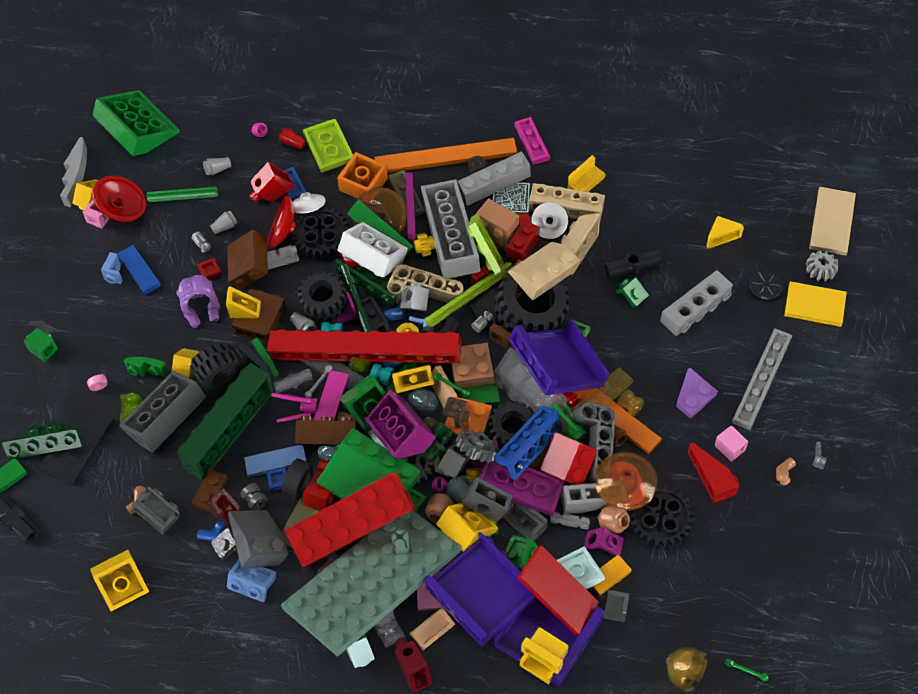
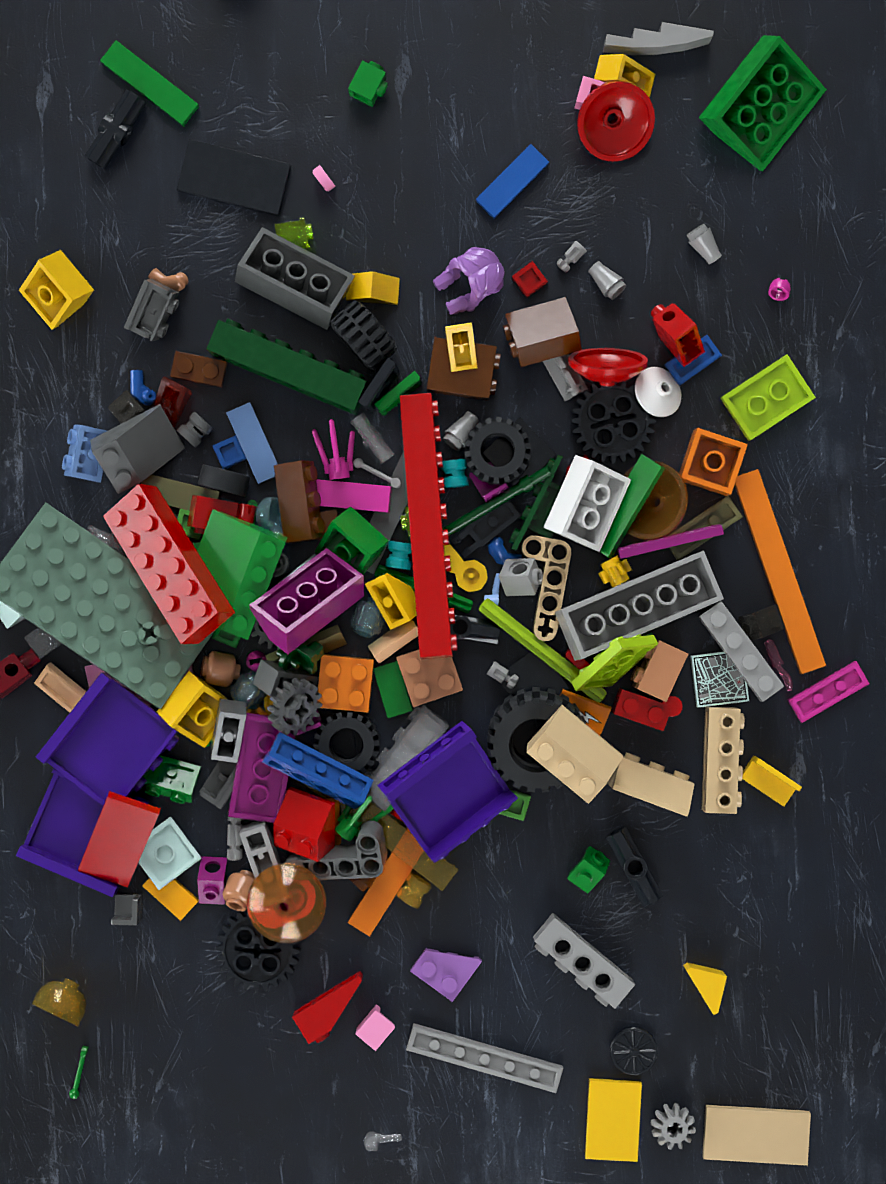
camera: 75 degrees right, 30 degrees up
(42, 440) = (226, 132): dark green bracket -> none
(111, 269) = (505, 142): medium blue bracket -> none
(142, 365) = (357, 230): green slope -> none
(181, 194) = (648, 207): green axle -> none
(290, 138) = (770, 341): red cone -> none
(438, 376) = (399, 634): green hinge -> none
(458, 410) = (336, 672): clear smoke bracket -> none
(500, 335) = (488, 703): reddish brown plate -> none
(543, 655) = (41, 834): yellow plate -> none
(559, 217) = (675, 741): white dish -> none
(782, 471) = (350, 1095): nougat arm -> none

